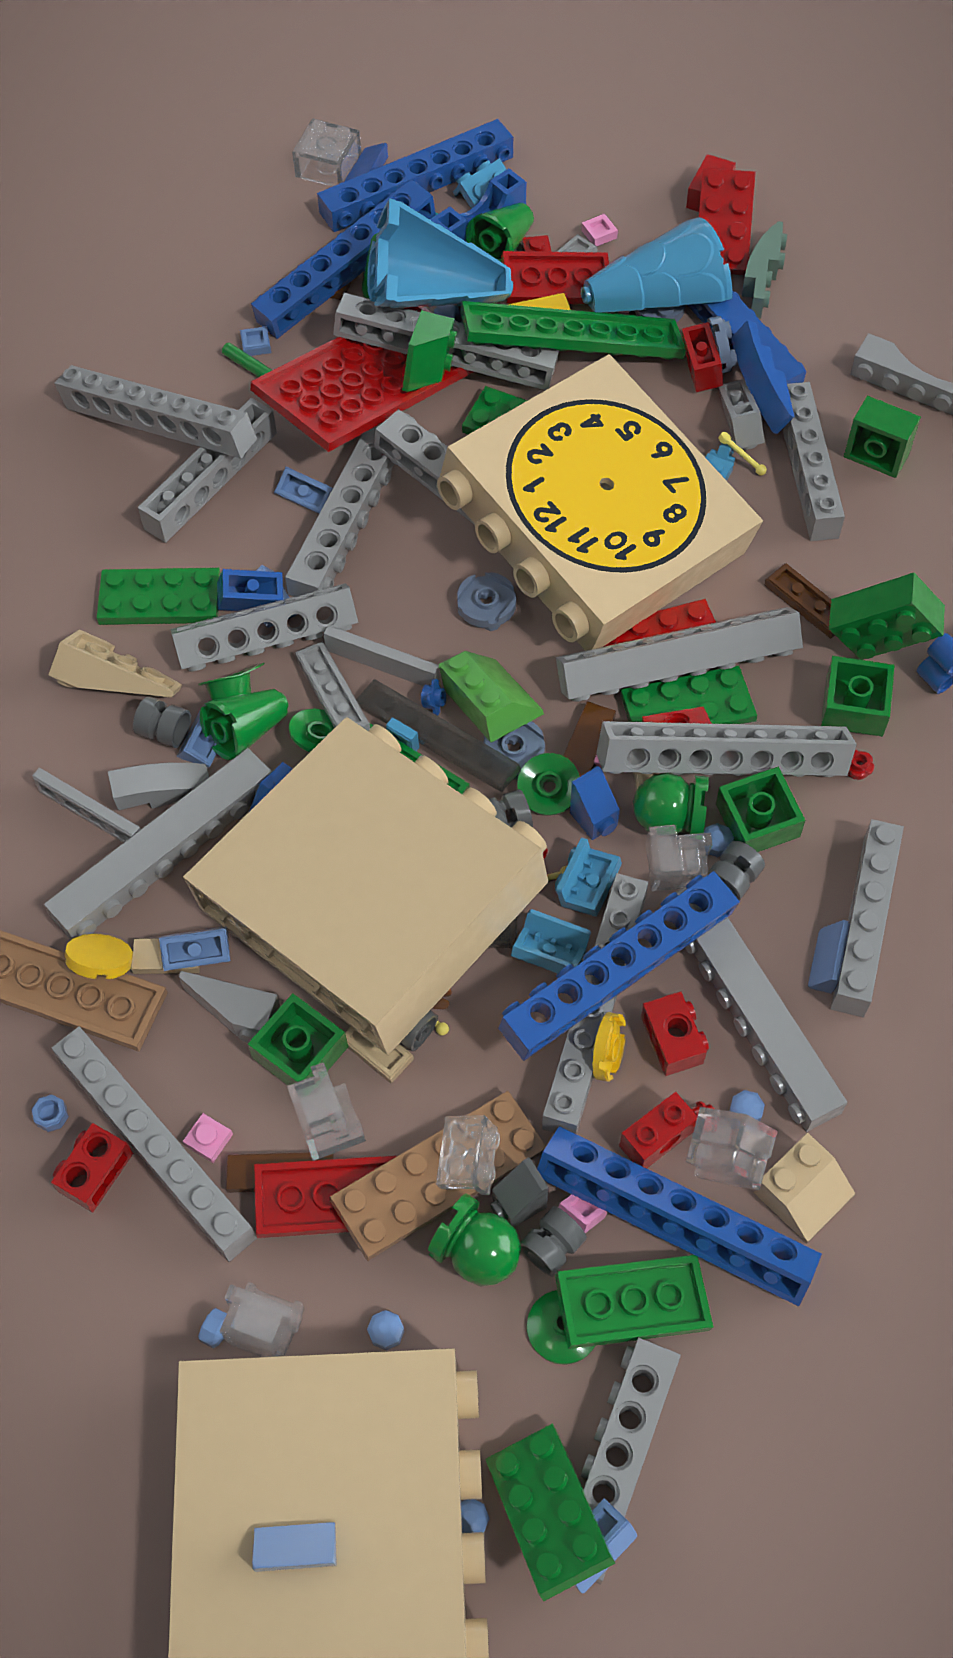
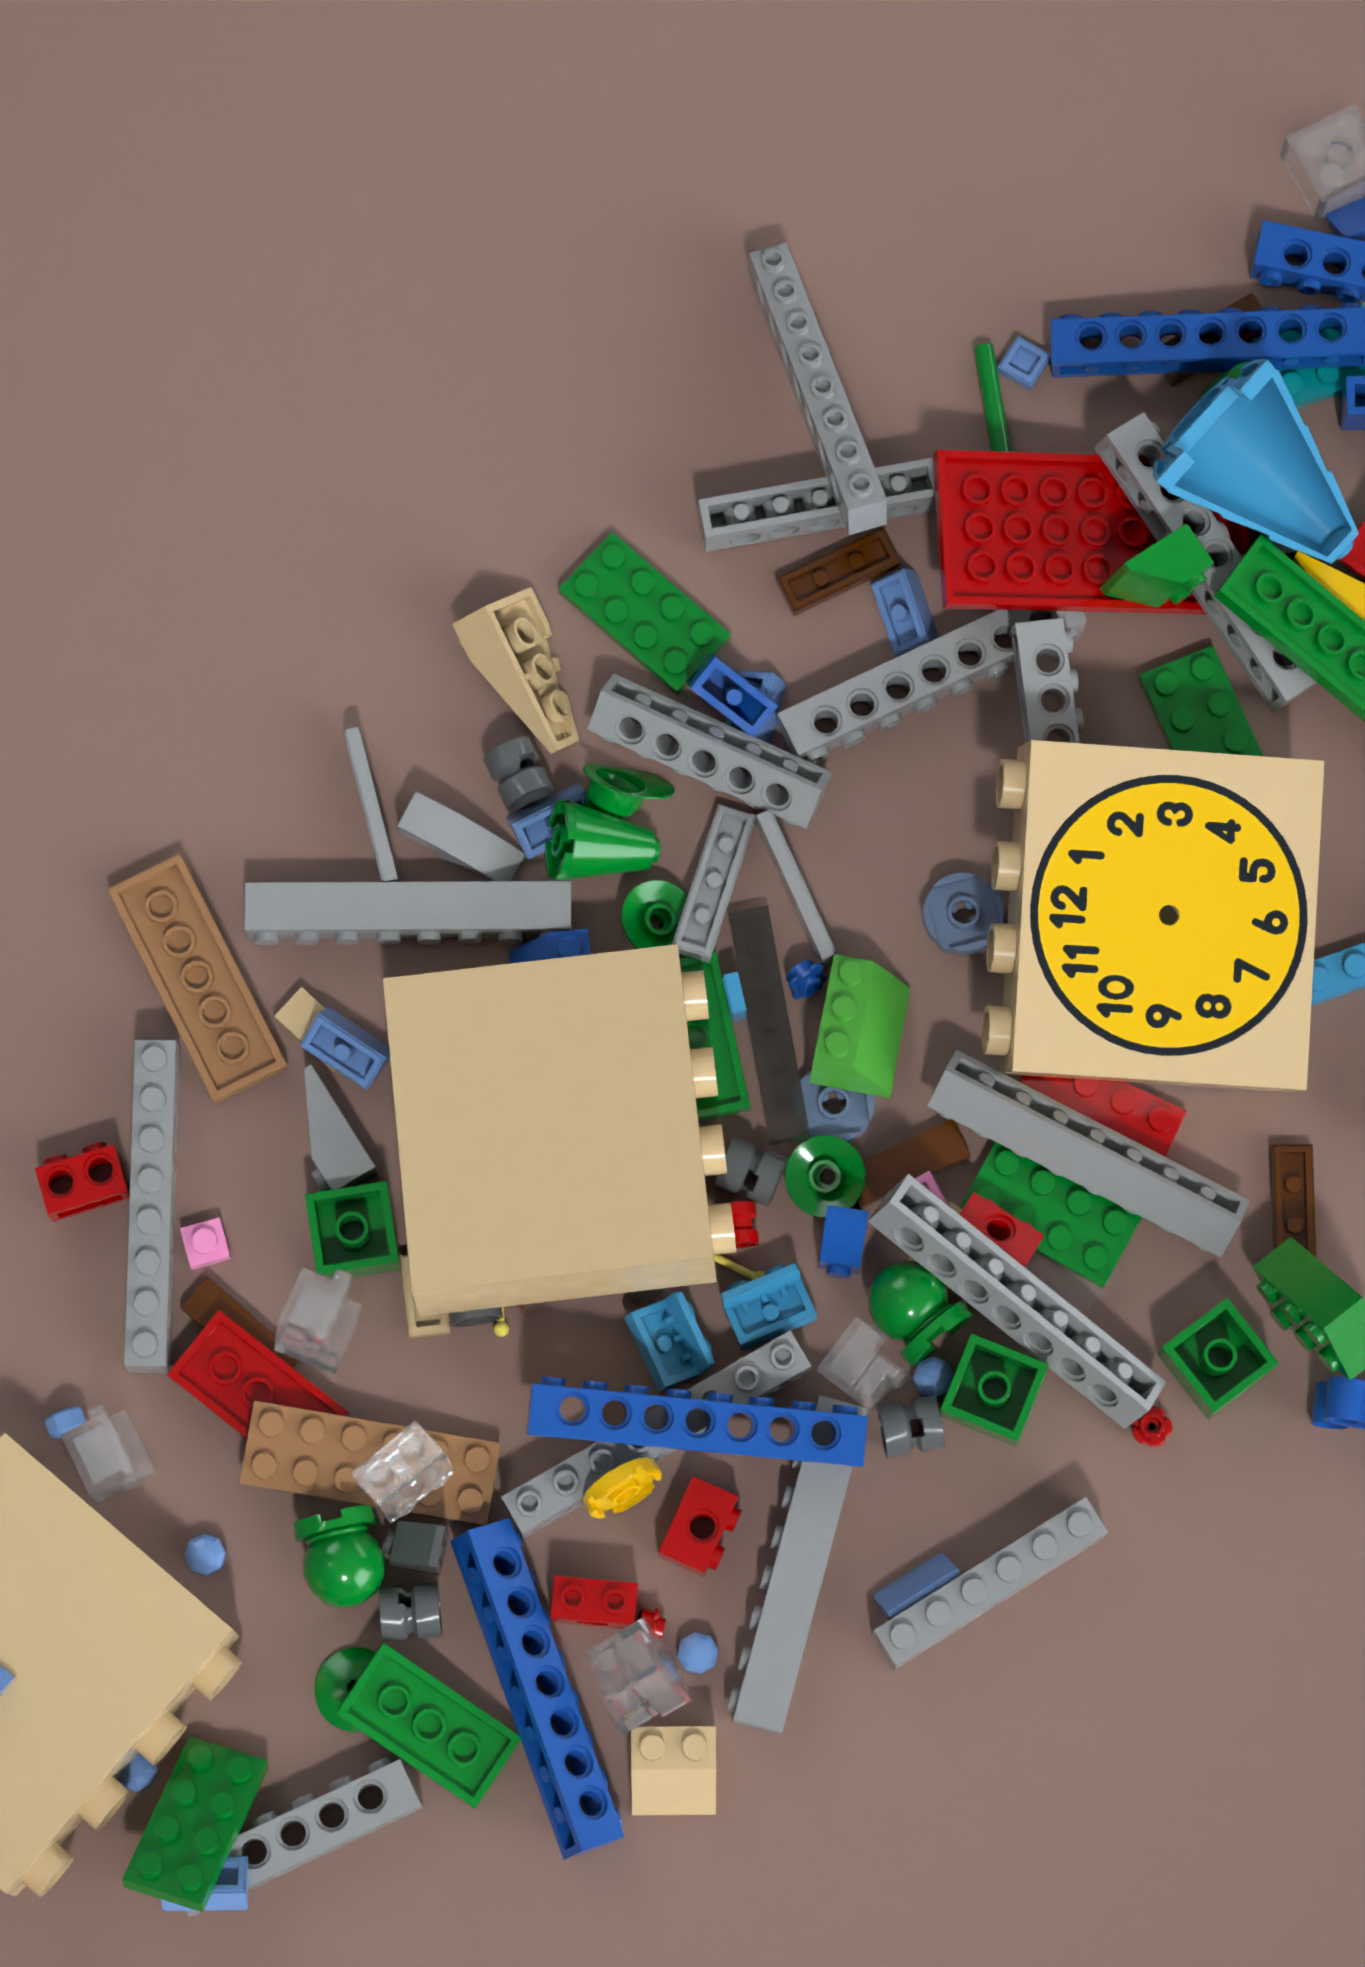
camera: 40 degrees right, 15 degrees up
(50, 1113) = (89, 1095): medium blue tile -> none
(98, 955) = (253, 979): yellow tile -> none
(250, 499) = (838, 571): none -> reddish brown tile
(582, 1212) = (457, 1610): bright pink plate -> none

